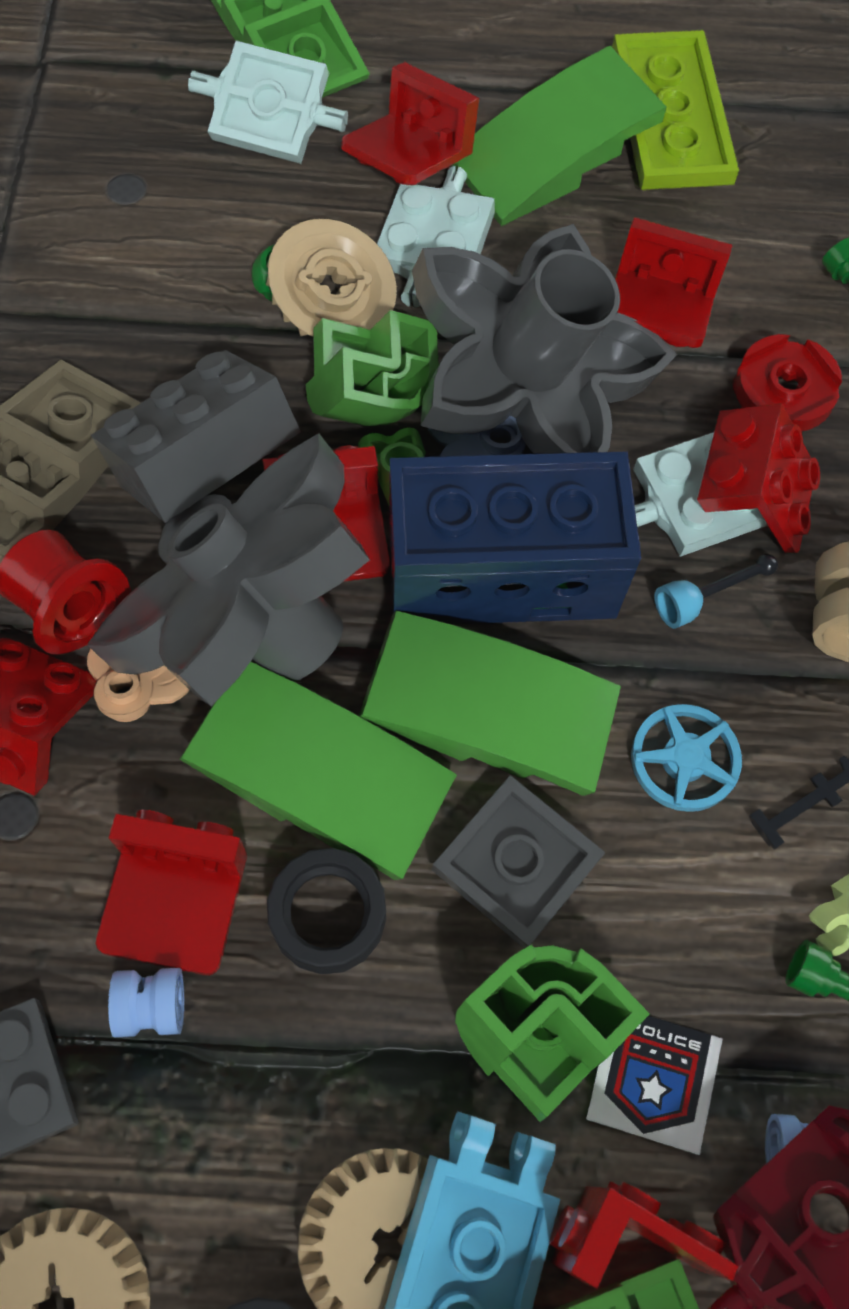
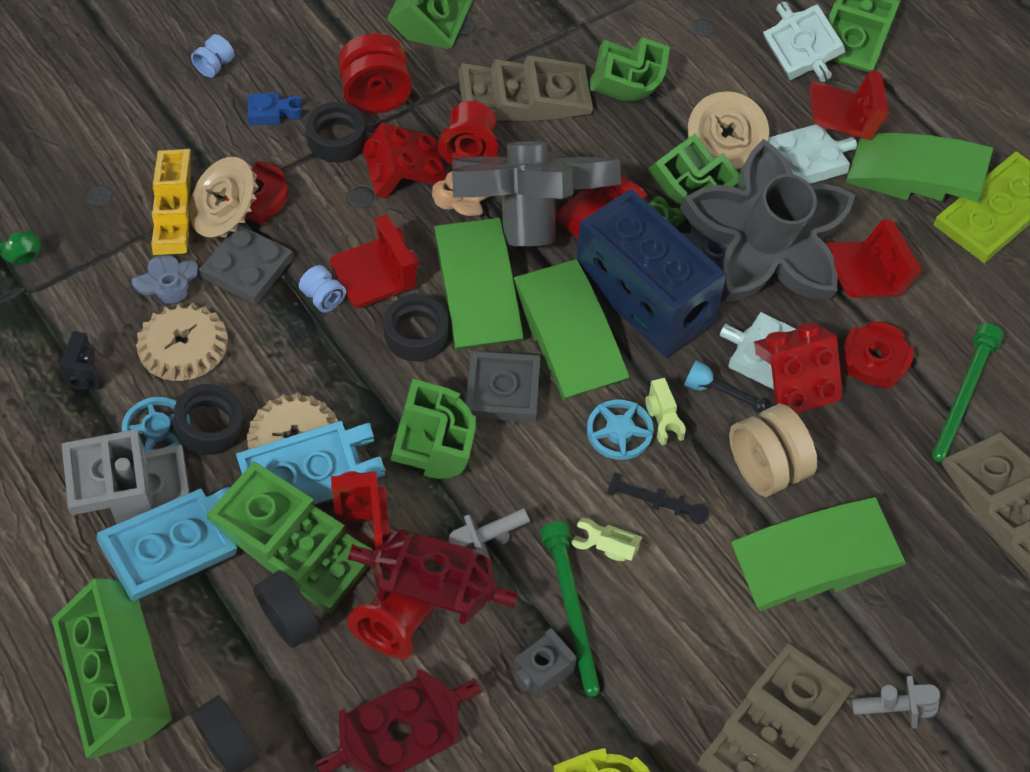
camera: 55 degrees right, 10 degrees down
(136, 317) = (629, 73): none -> bright green brick
(196, 433) = (590, 128): dark grey brick -> none
(658, 1084) = (446, 502): sticker -> none
(705, 680) = (663, 406): none -> yellowish green plate
(754, 1098) = (474, 537): none -> light grey arm

